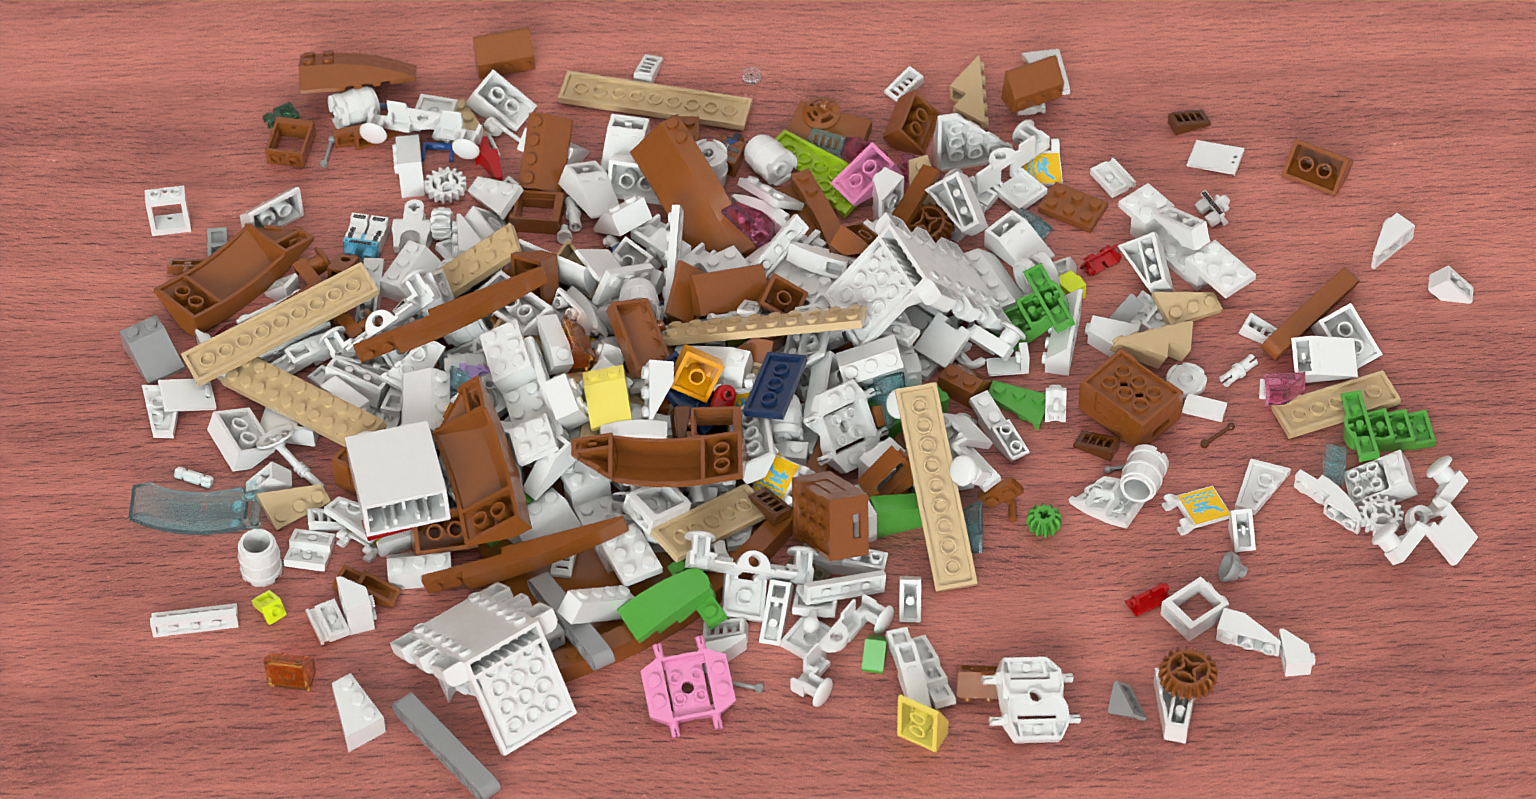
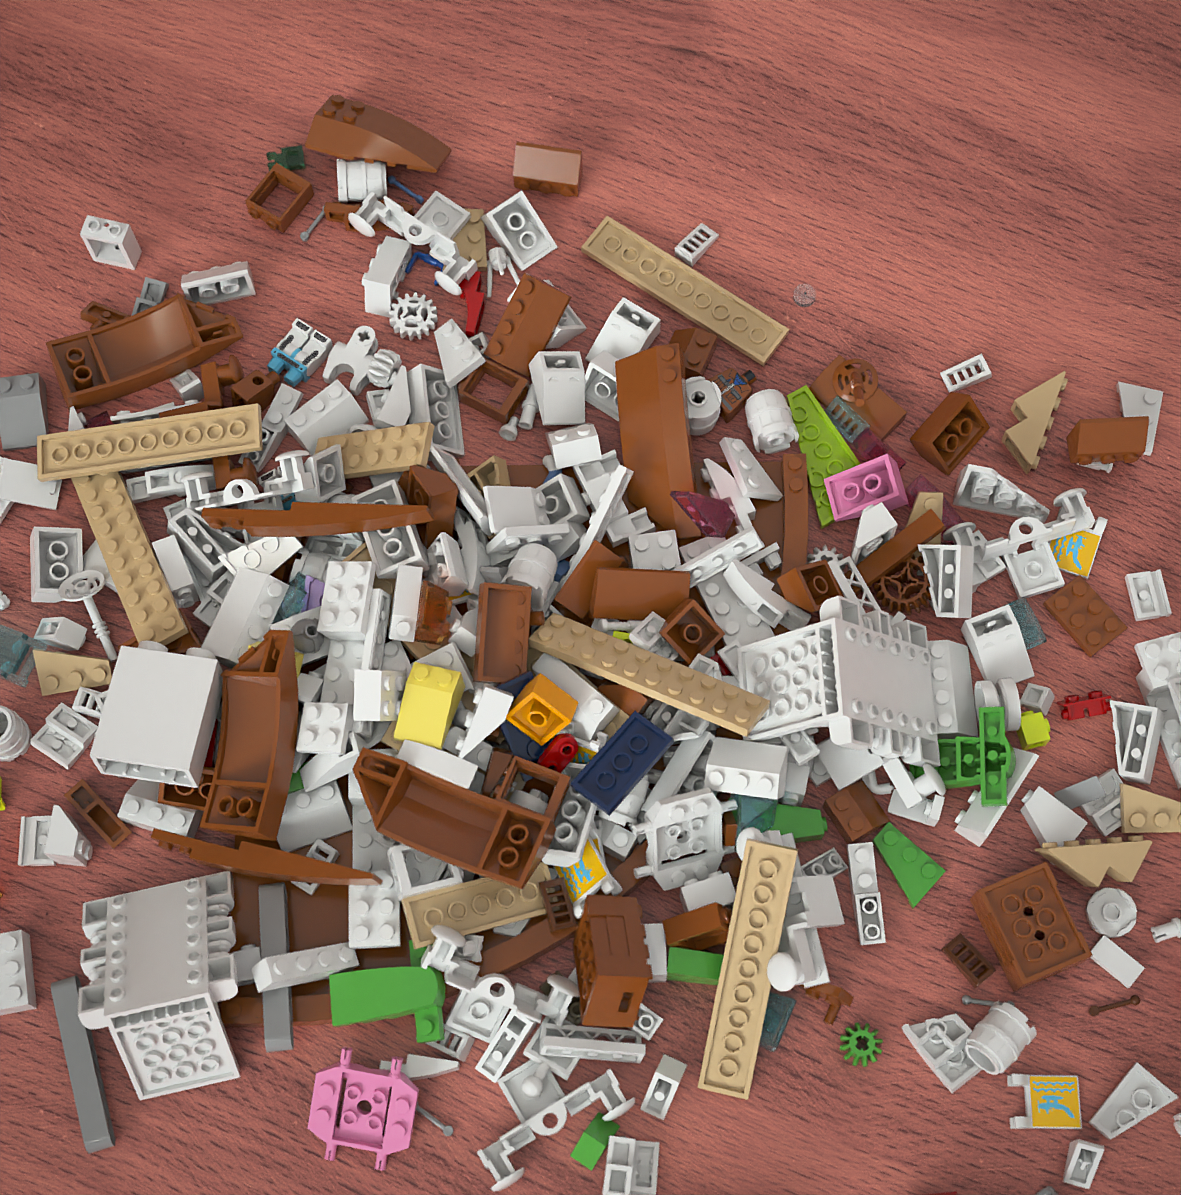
camera: 25 degrees right, 20 degrees up
(1055, 403) = (942, 891): white hips -> none

